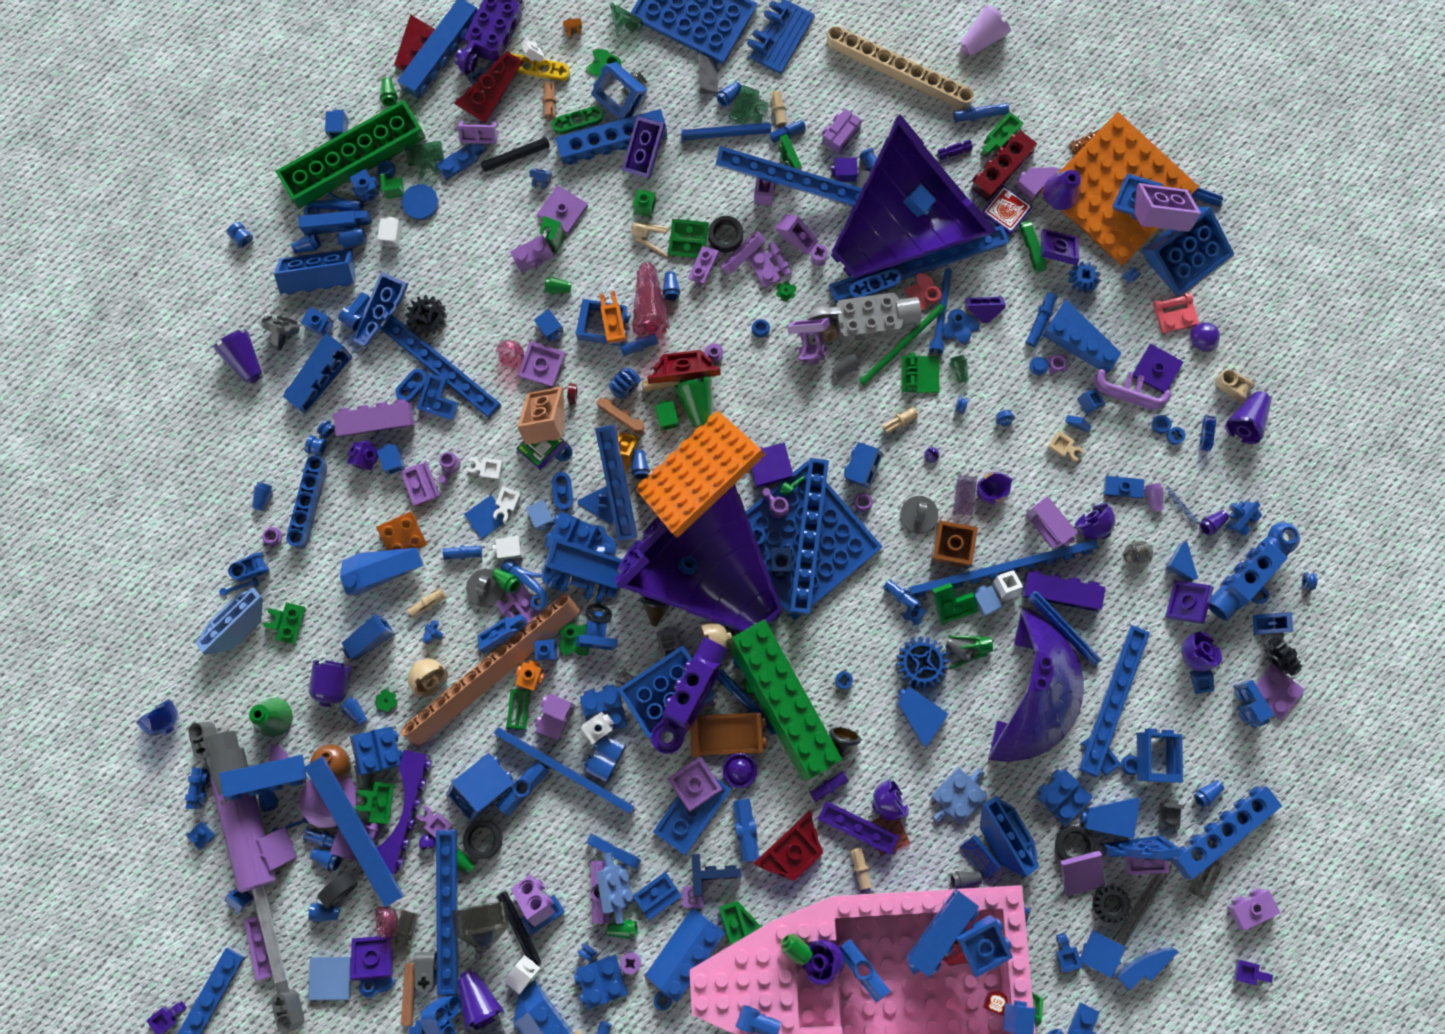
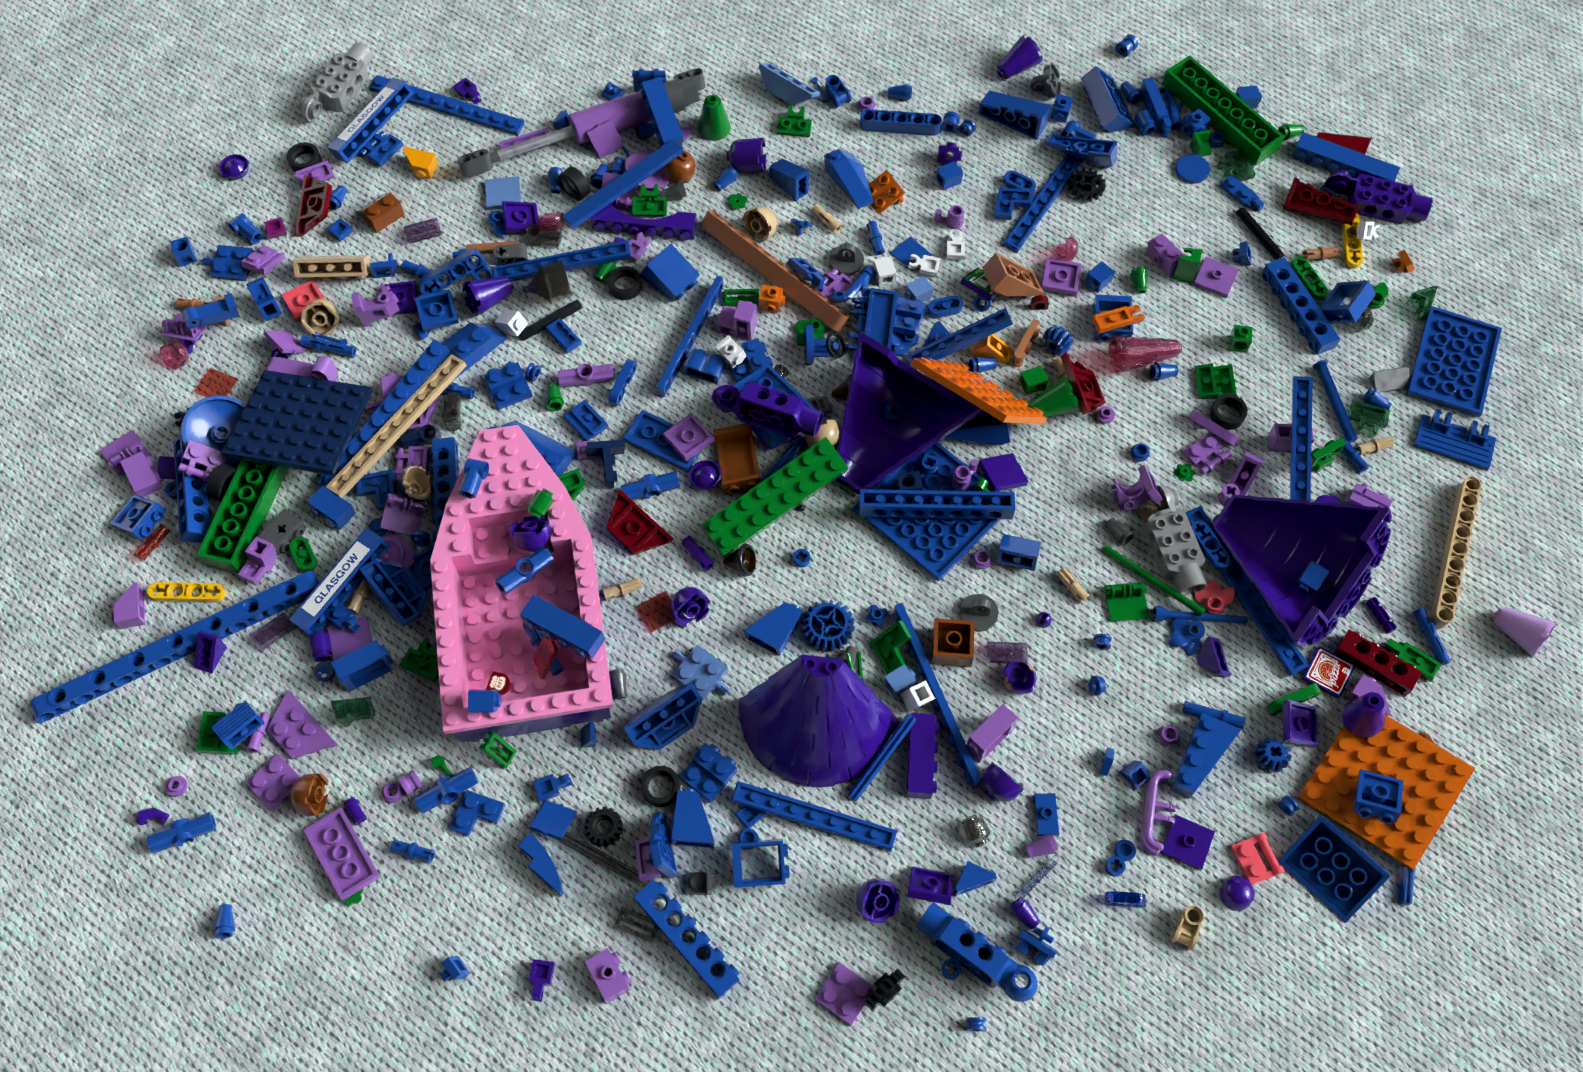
camera: 80 degrees right, 15 degrees down
(159, 719) = (703, 50): clear blue cylinder -> none
(373, 419) = (983, 158): medium lavender brick -> none
(376, 750) = (693, 194): blue plate -> none
(389, 232) = (1157, 148): white brick -> none
(420, 484) = (931, 199): medium lavender plate -> none
(478, 133) = (1270, 199): medium lavender hinge -> none
(506, 581) = (853, 270): green cone -> none
(513, 797) = (665, 303): blue piece -> none
(530, 902) = (574, 321): medium lavender brick -> none
(546, 650) = (796, 308): blue bracket -> none
(614, 888) = (589, 381): medium blue plate -> none
(633, 959) = (525, 411): medium lavender wheel -> none
(639, 344) = (1099, 351): blue pin -> none
(642, 230) = (1212, 342): tan plant -> none
(643, 147) = (1296, 330): dark purple slope -> none
(703, 265) = (1197, 396): medium lavender hinge -> none
(858, 827) = (660, 581): dark purple plate -> none
(901, 595) = (892, 599): blue pin -> none
(960, 368) = (1141, 637): clear green cone -> none
(980, 856) = (642, 695): blue tile -> none
(985, 945) = (551, 663): blue plate -> none
(1038, 366) = (1161, 716): blue plate -> none
(1063, 445) = (1079, 746): tan plate -> none
(1083, 873) = (632, 792): medium lavender tile -> none
(1165, 207) = (1372, 815): medium lavender slope -> none
(1202, 681) = (846, 911): blue slope -> none
(1206, 795) = (725, 921): blue cone -> none
(1250, 419) = (1153, 944): dark purple cone -> none
(1255, 708) = (821, 960): blue plate -> none
(1273, 623) = (920, 982): blue slope -> none

